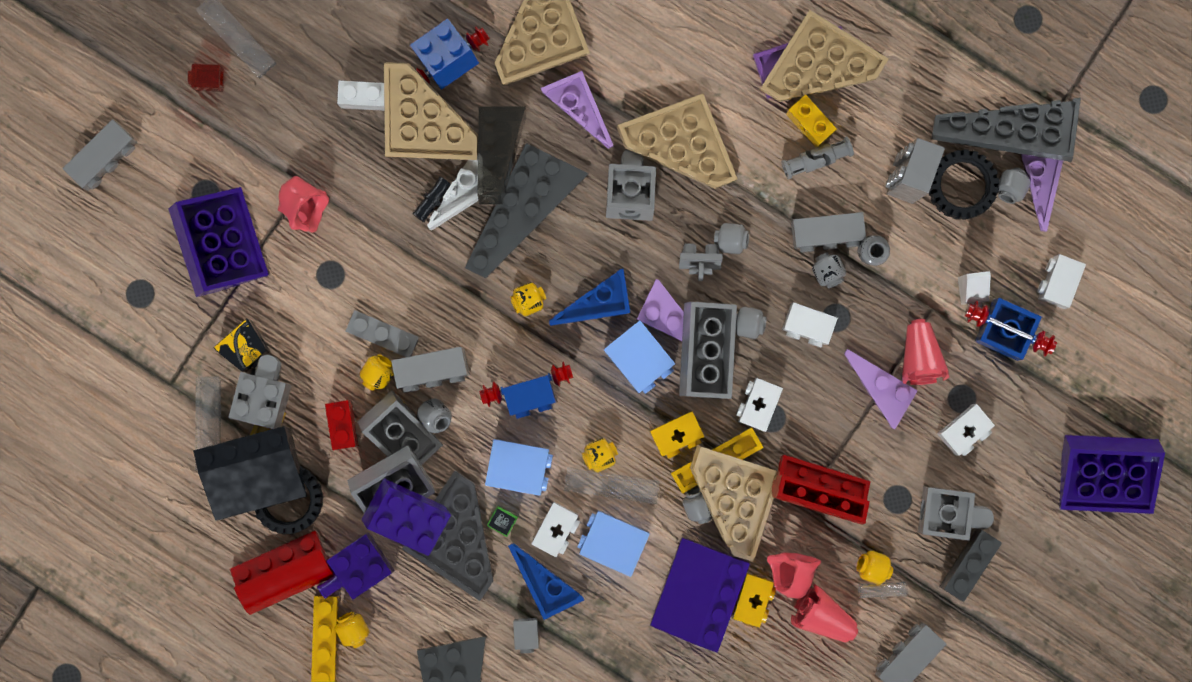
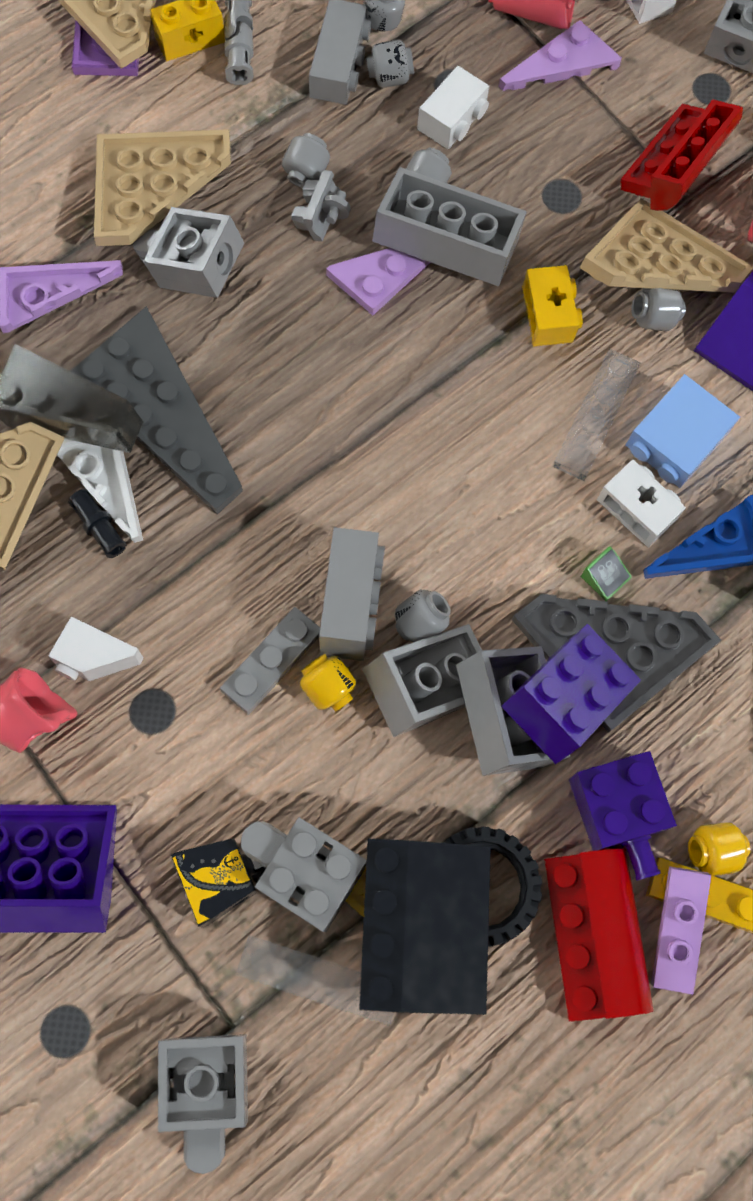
camera: 75 degrees left, 15 degrees down
(130, 382) = (205, 1095): none -> light grey brick
(298, 618) = (681, 930): none -> lavender plate
(341, 425) = (392, 760): red brick -> none
(350, 227) = (91, 653): none -> white slope
(518, 467) = (534, 525): light blue brick -> none
(528, 299) = (294, 435): yellow head -> none
(529, 394) = (437, 469): blue brick -> none
(599, 455) = (551, 410): yellow head -> none
(603, 301) = (332, 341): blue wing -> none
(640, 357) = (428, 319): light blue brick -> none
(738, 447) = (609, 303): yellow plate -> none
(761, 418) = (543, 194): white brick -> none

